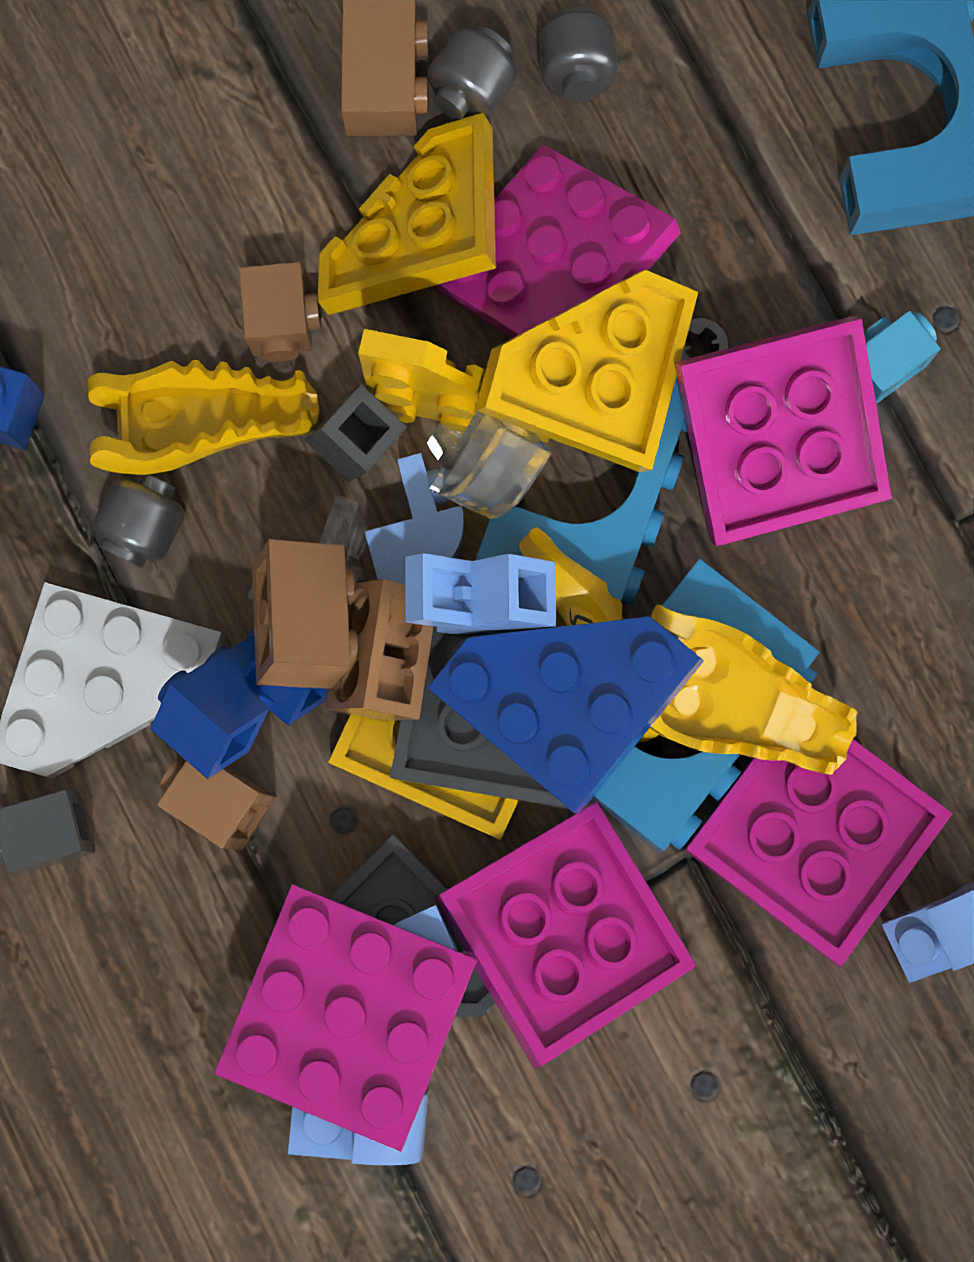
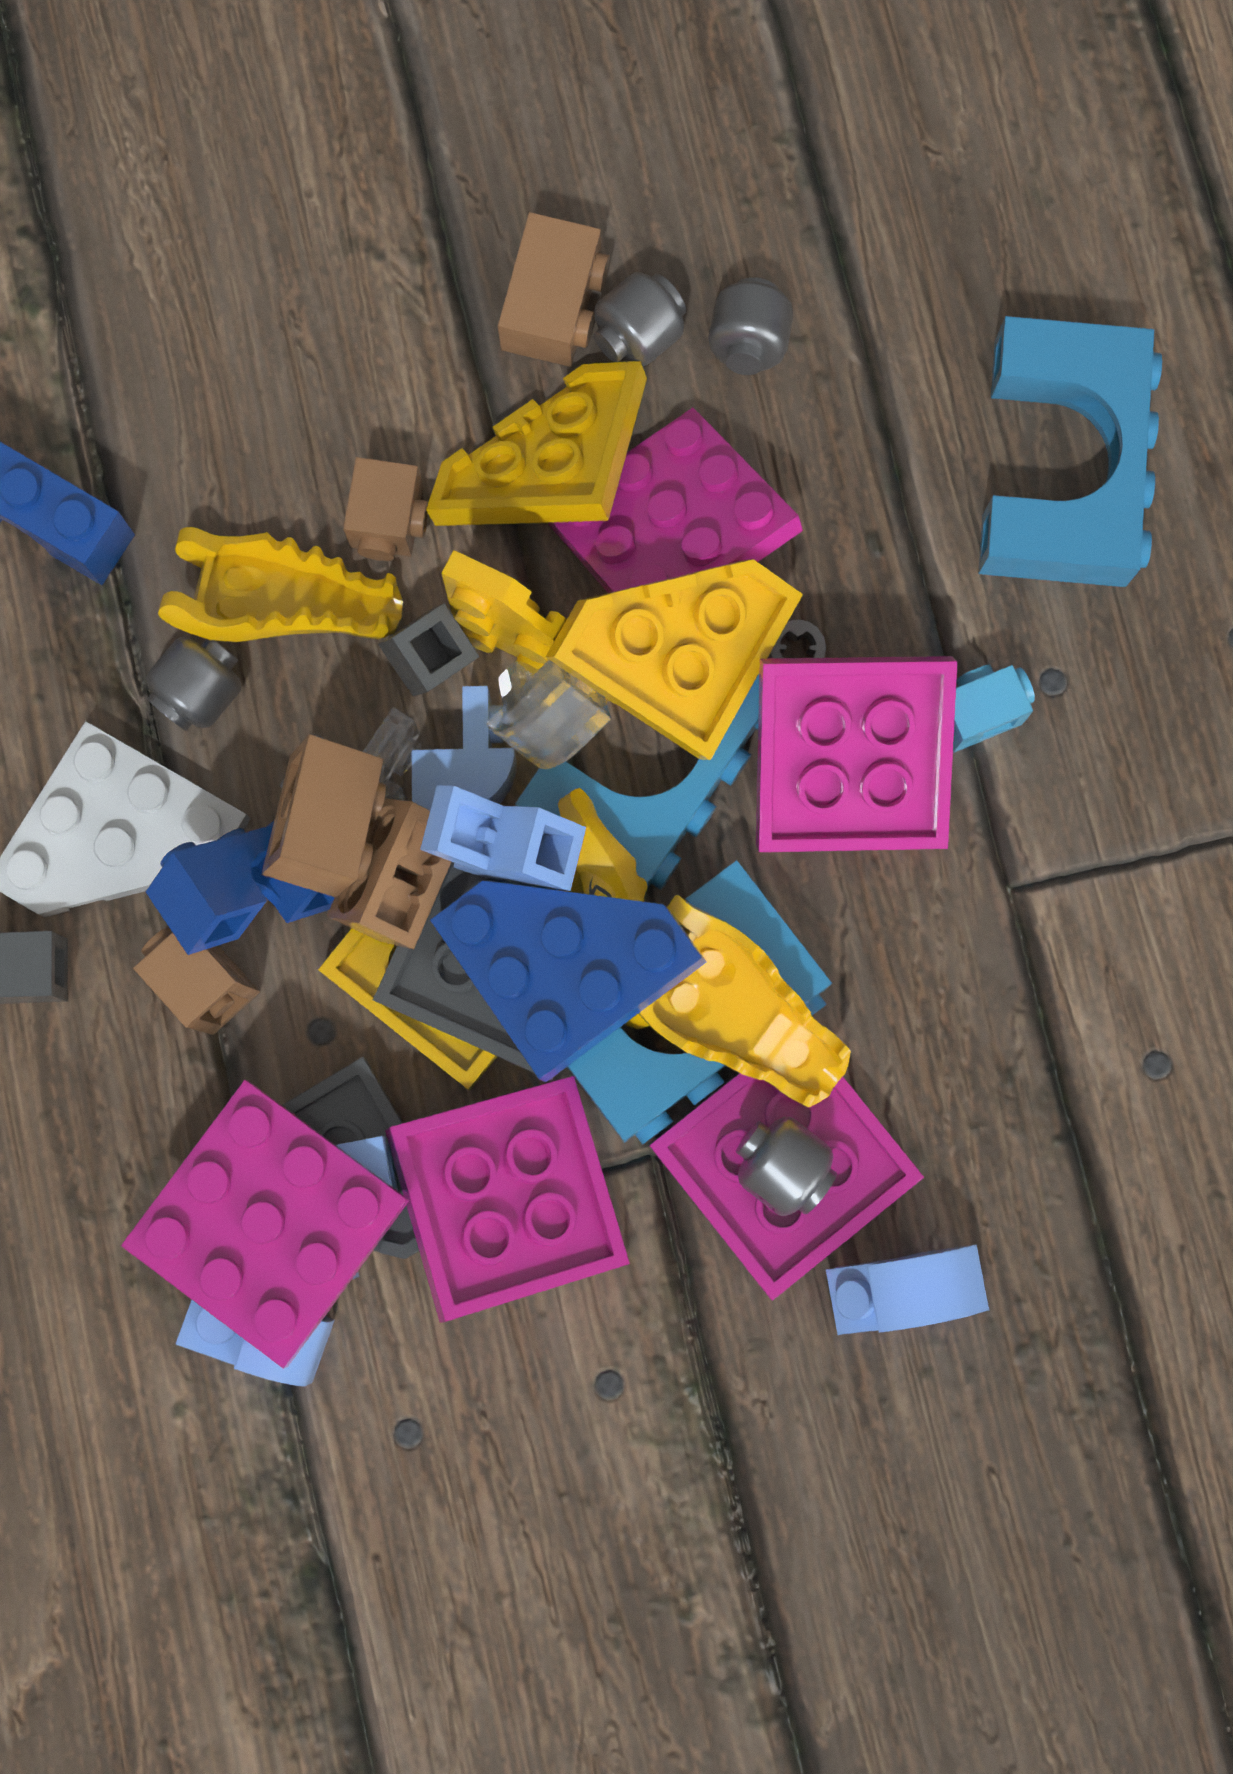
camera: 10 degrees right, 0 degrees up
(823, 836) = (785, 1166): none -> flat silver head

